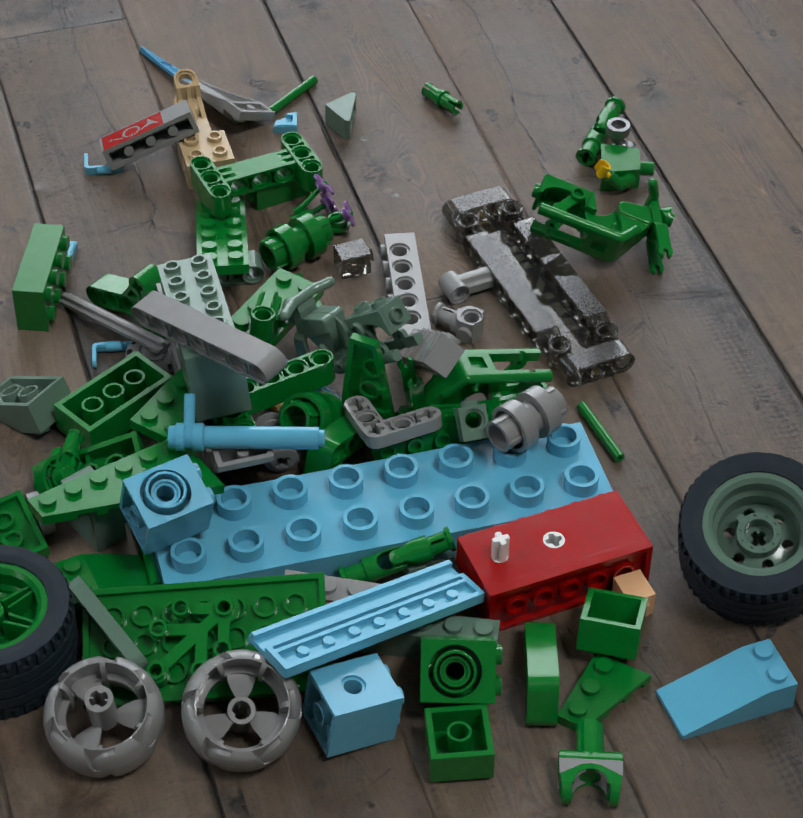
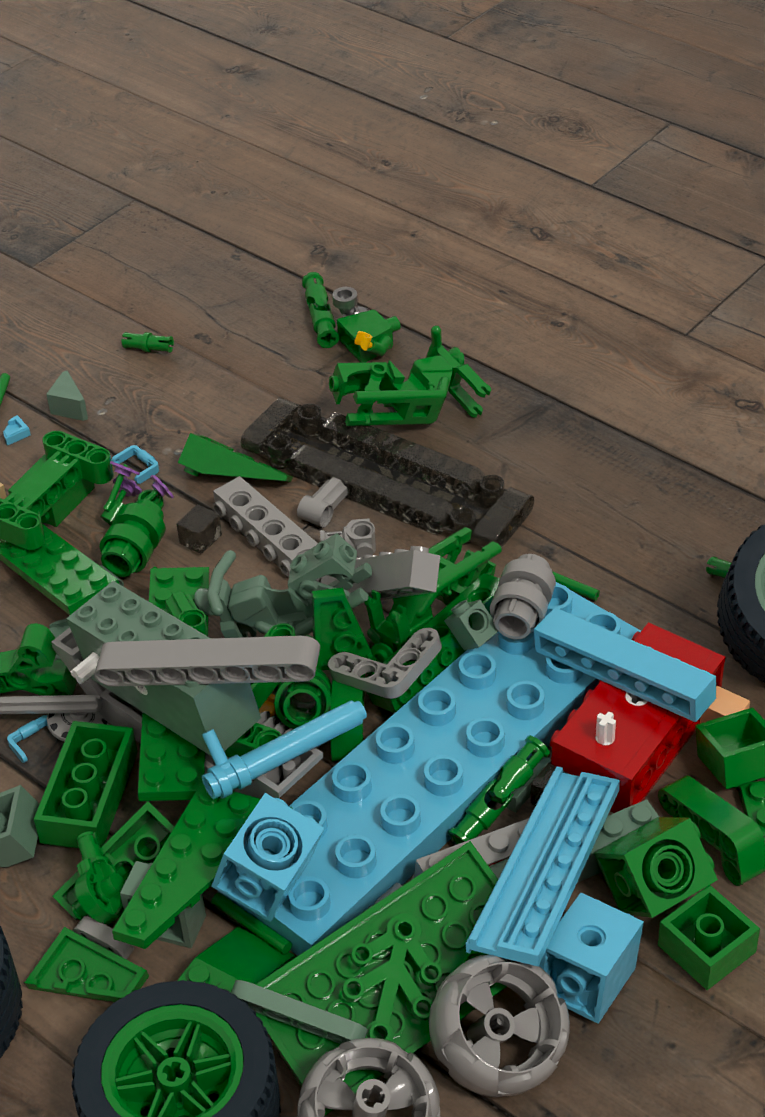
camera: 30 degrees left, 0 degrees up
(364, 187) = (142, 455): none -> medium azure piece
(416, 212) = (214, 458): none -> green wedge
(560, 509) = (626, 664): none -> medium azure brick

